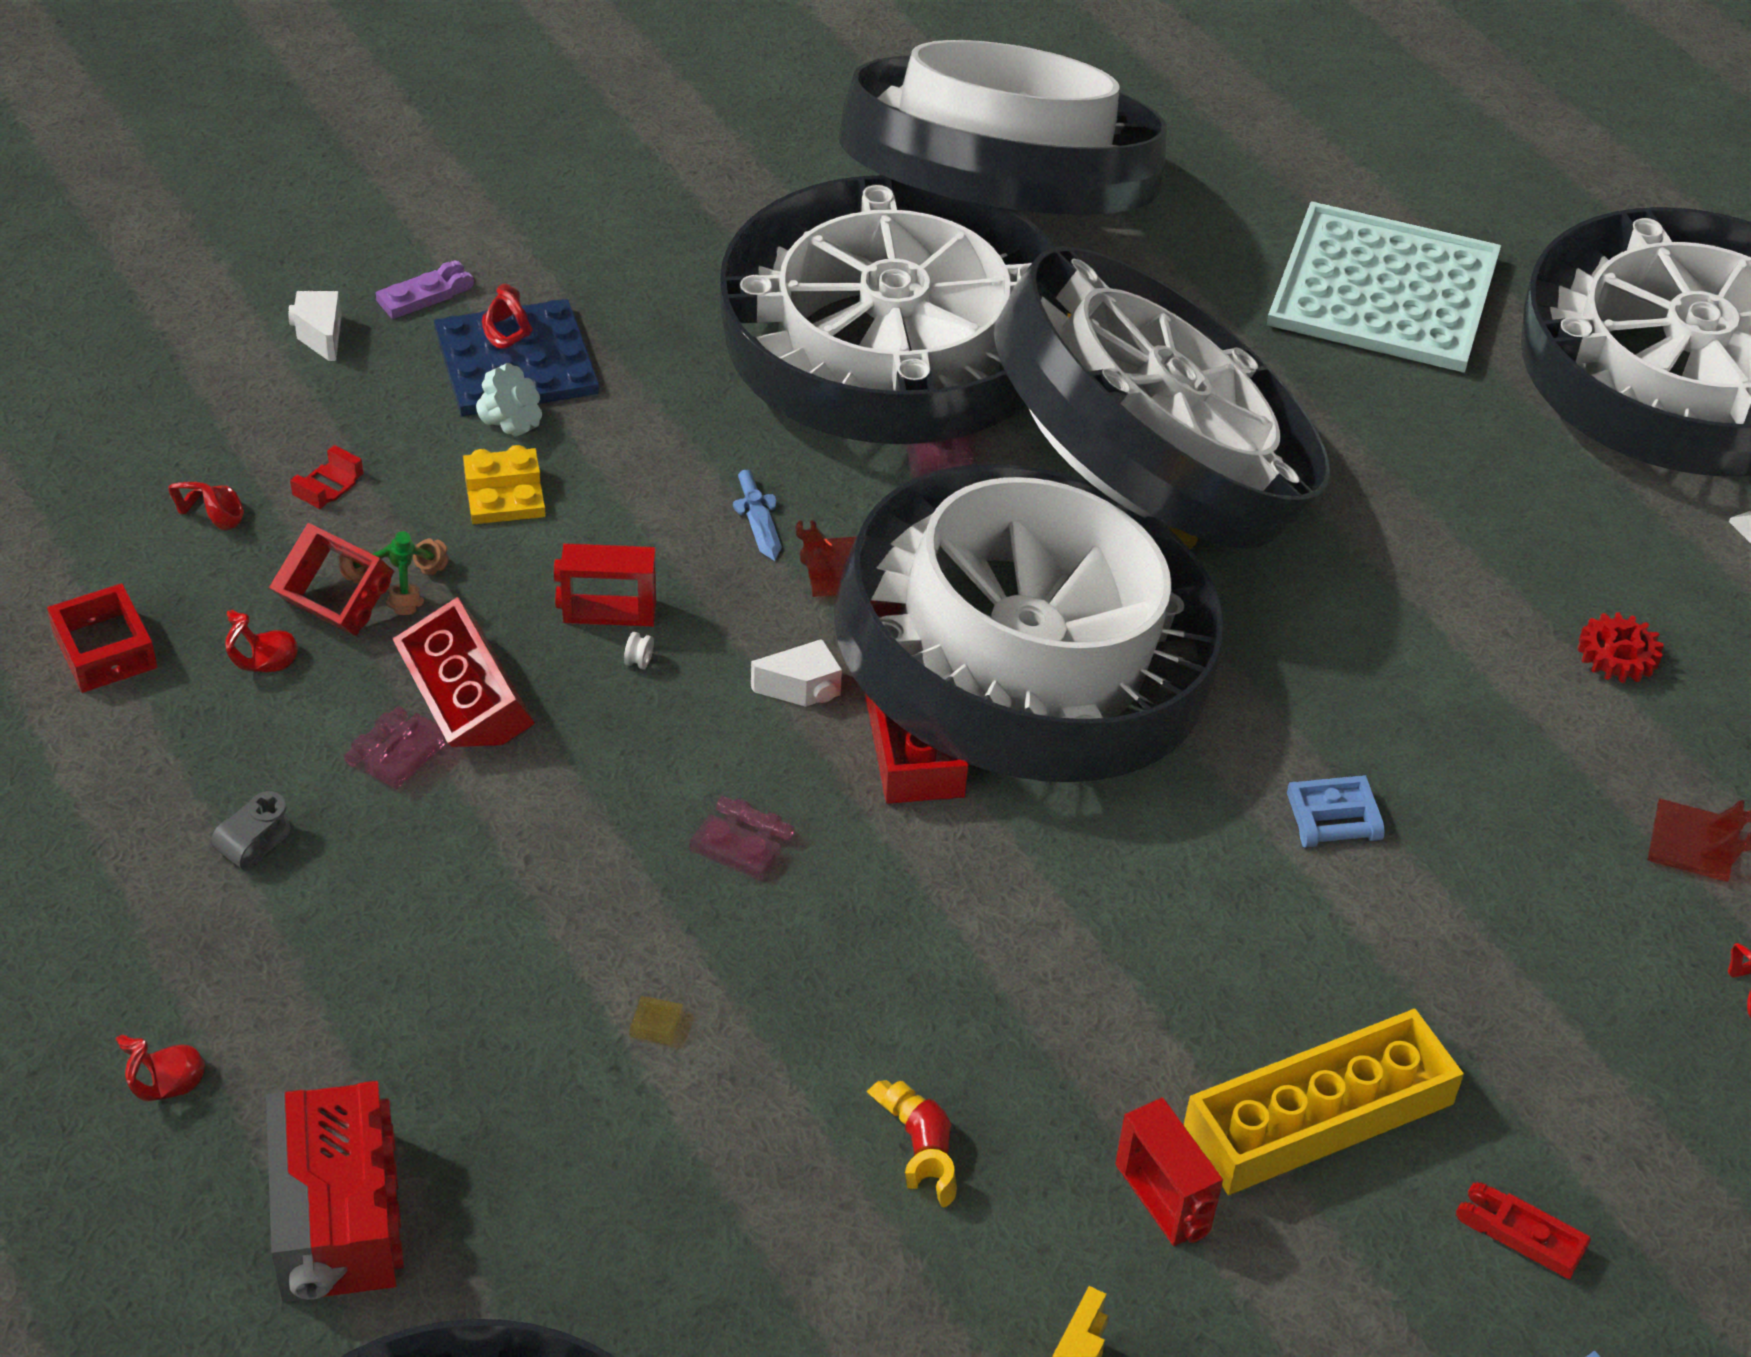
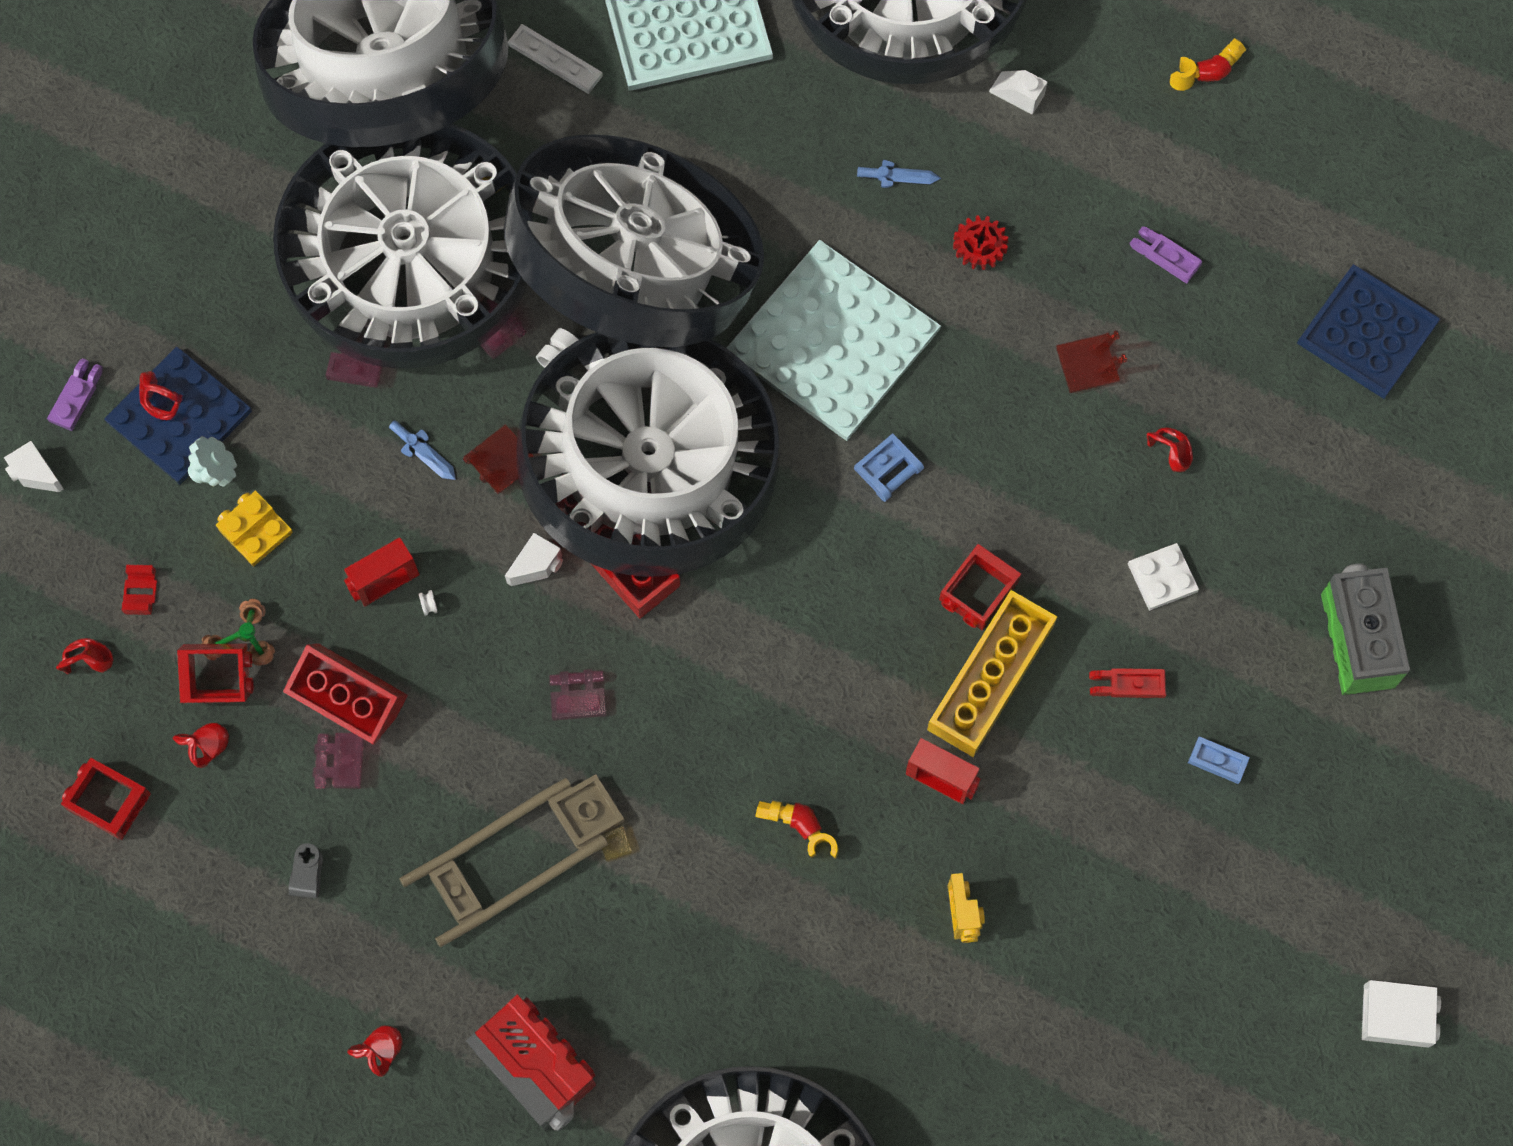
camera: 30 degrees left, 25 degrees up
(640, 958) = (582, 810): none -> dark tan plate
(742, 406) = (349, 370): none -> clear pink plate
(1200, 264) = (555, 58): none -> white tile
(1355, 656) = (833, 339): none -> light aqua plate
(1388, 962) = (994, 567): none -> red window
(1541, 531) = (897, 174): none -> medium blue sword
(1658, 1132) = (1163, 576): none -> white plate

